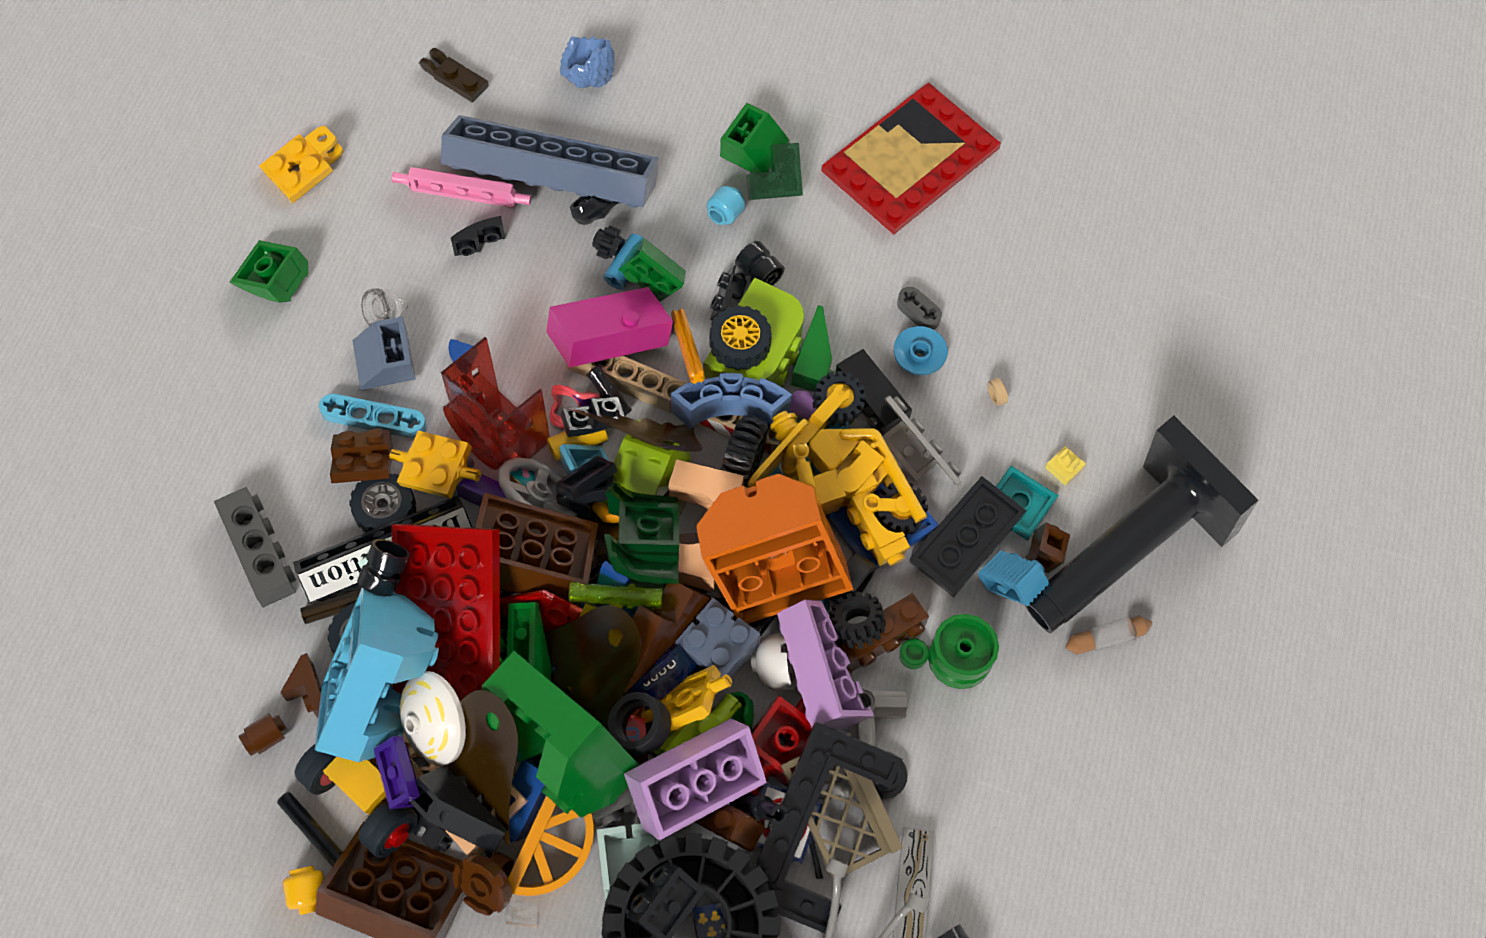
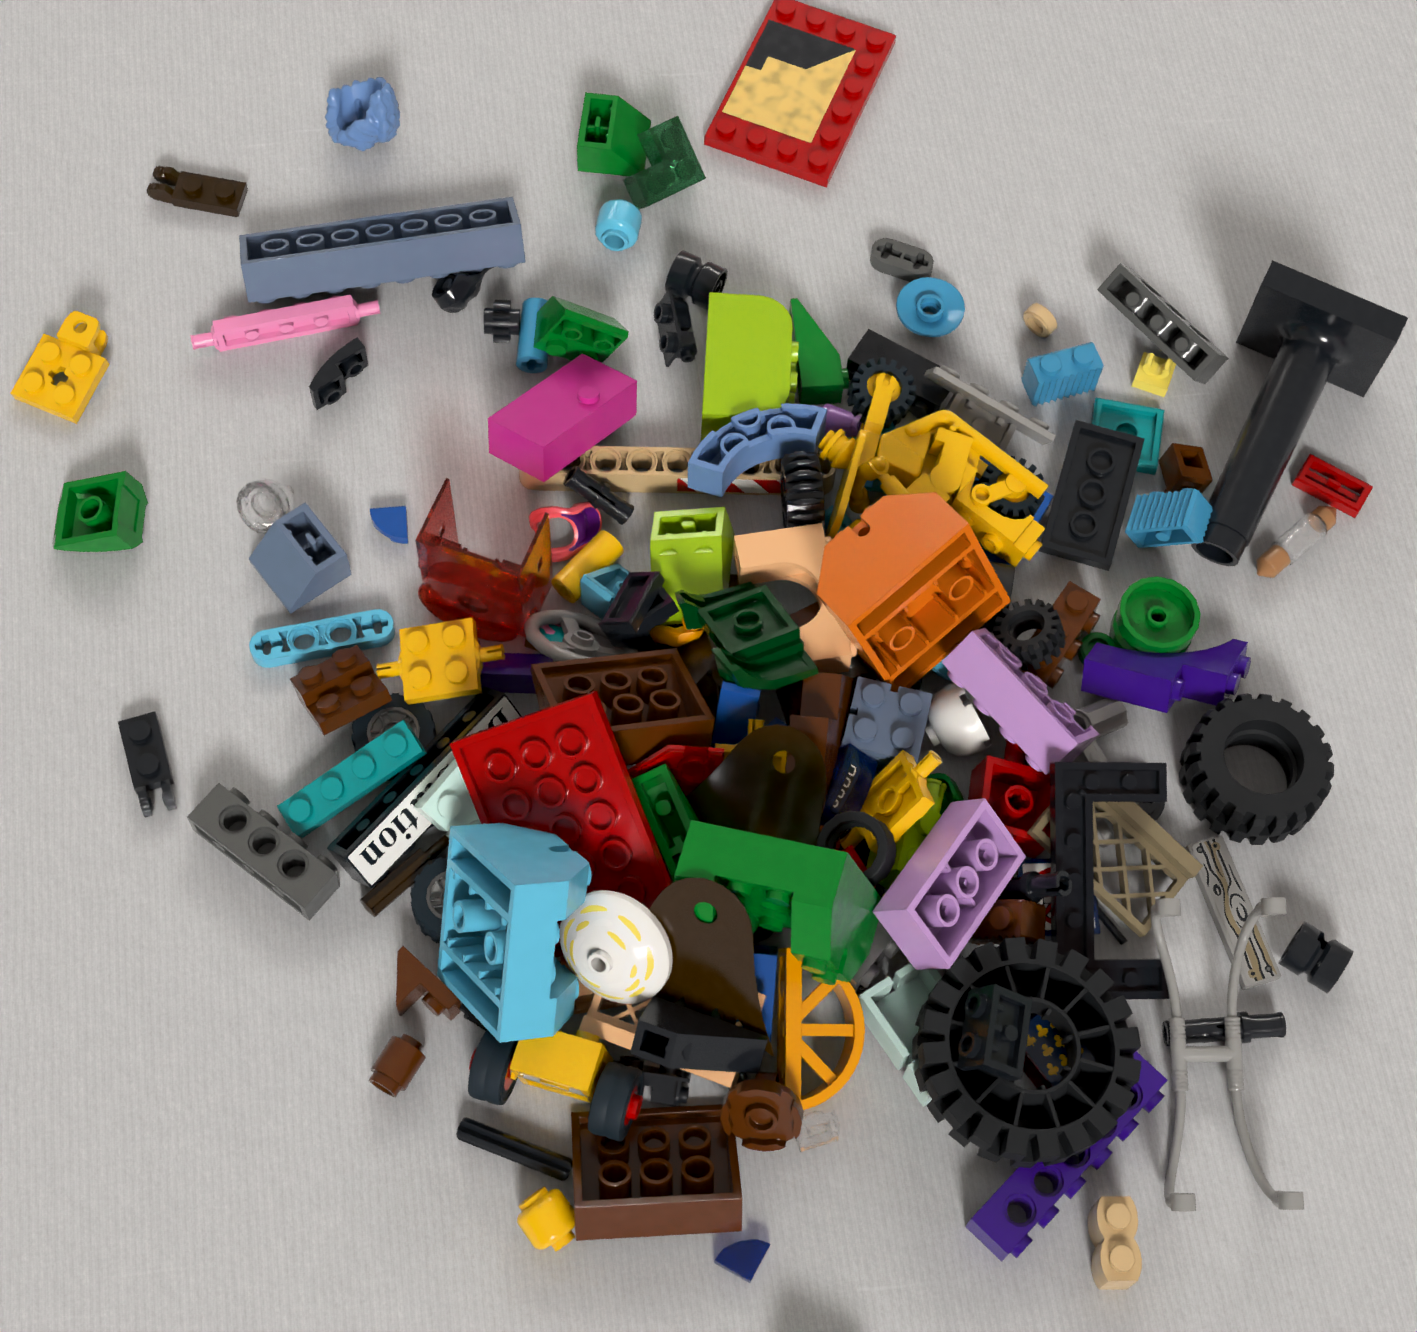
camera: 25 degrees left, 0 degrees up
(215, 452) = (147, 760): none -> black hinge
(336, 522) = (351, 779): none -> teal plate
(383, 567) = (466, 803): black wheel -> none
(396, 772) = (606, 1027): dark purple panel -> none
(578, 424) = (602, 529): black slope -> none
(617, 595) = (769, 711): clear neon green pin -> none
(653, 432) = (691, 514): dark brown piece -> none
(687, 346) = (673, 405): light orange axle -> none
(740, 337) = (744, 354): black wheel -> none
(943, 694) = (1163, 678): none -> dark purple arch
(993, 437) = (1062, 373): none -> dark azure brick
(1007, 763) = (1277, 731): none -> black tyre
(1087, 431) = (1162, 324): none -> dark grey brick
(1153, 611) = (1330, 489): none -> red tile

